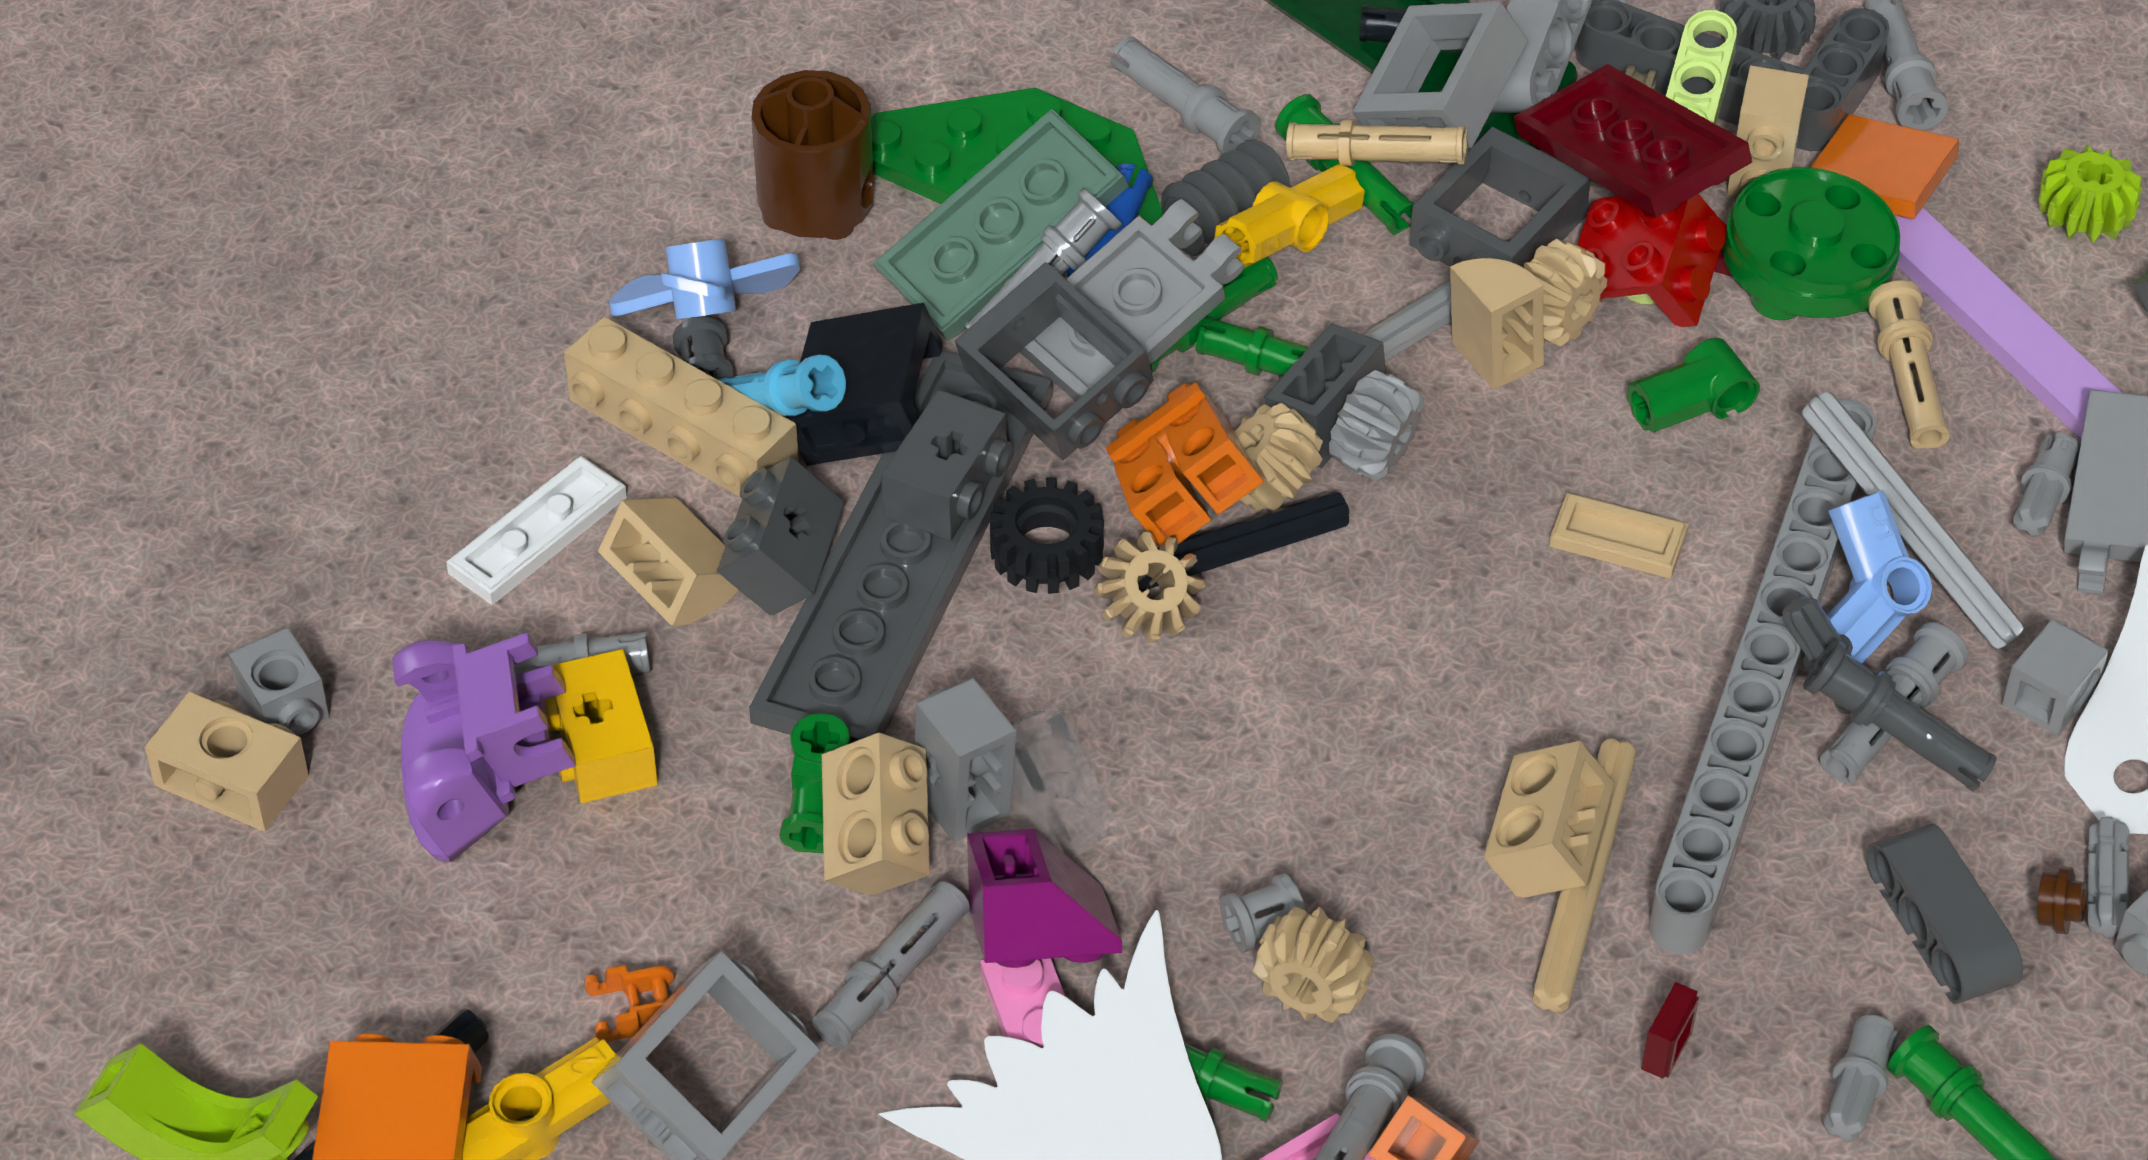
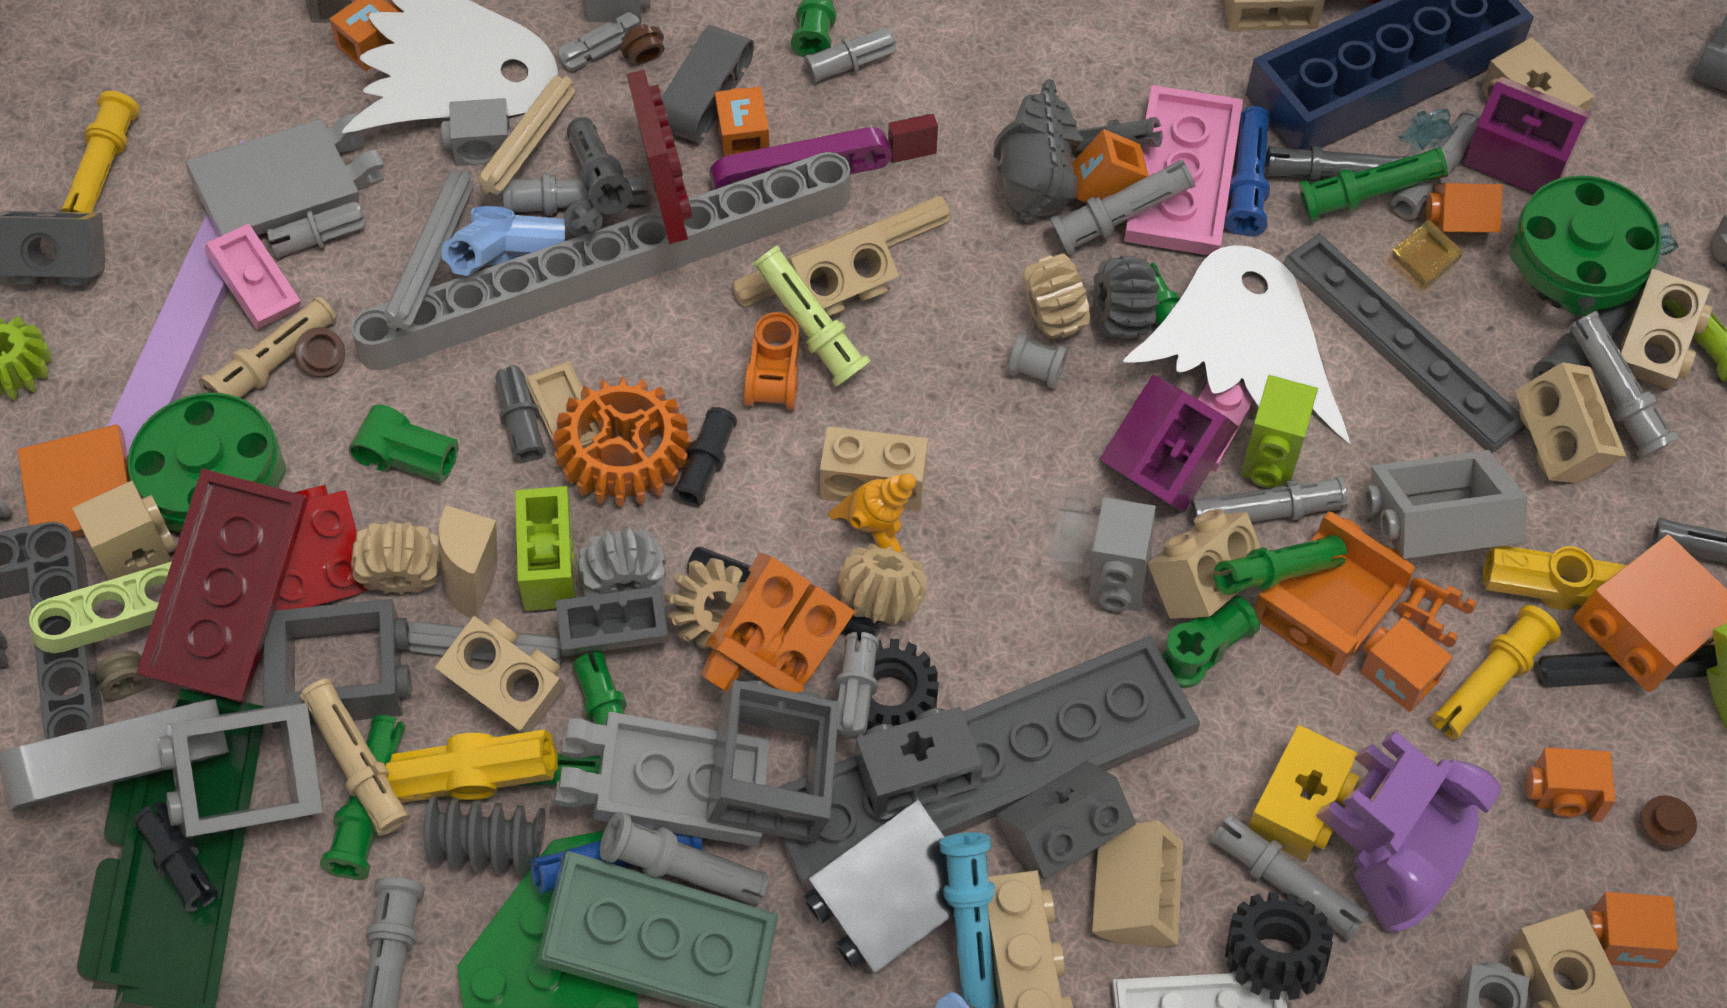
camera: 135 degrees left, 10 degrees up
(199, 842) = (1635, 928): none -> orange brick
(237, 976) = (1668, 822): none -> reddish brown plate
(357, 926) = (1572, 782): none -> orange brick
(512, 555) = (1277, 969): none -> black tyre
(518, 1002) = (1509, 656): none -> yellow pin
(612, 907) = (1404, 663): none -> orange brick
(749, 903) = (1340, 607): none -> orange panel
(813, 837) = (1268, 568): none -> green pin
(941, 992) = (1278, 431): none -> lime brick
(1064, 473) = (856, 684): none -> light grey axle
(1229, 634) = (877, 508): none -> light orange piece
(1246, 1018) = (1124, 297): none -> dark grey gear
(1281, 679) = (861, 456): none -> tan brick
(1357, 283) = (495, 683): none -> tan brick
(1443, 585) = (705, 457): none -> black pin
(1464, 391) = (544, 547): none -> lime brick
(1476, 743) = (824, 335): none -> yellowish green pin
(1491, 703) = (773, 369): none -> orange piece
(1503, 1084) = (1038, 156): none -> dark grey helmet
(1563, 534) = (616, 458): none -> orange gear
(1643, 489) = (519, 415): none -> dark grey axle
(1736, 909) = (862, 148): none -> magenta beam
(1829, 713) = (661, 156): none -> dark red plate
(1846, 898) = (741, 120): none -> orange brick
(1880, 393) = (319, 352): none -> reddish brown plate
(2006, 699) = (526, 135): none -> tan axle
(2020, 395) = (252, 276): none -> bright pink plate

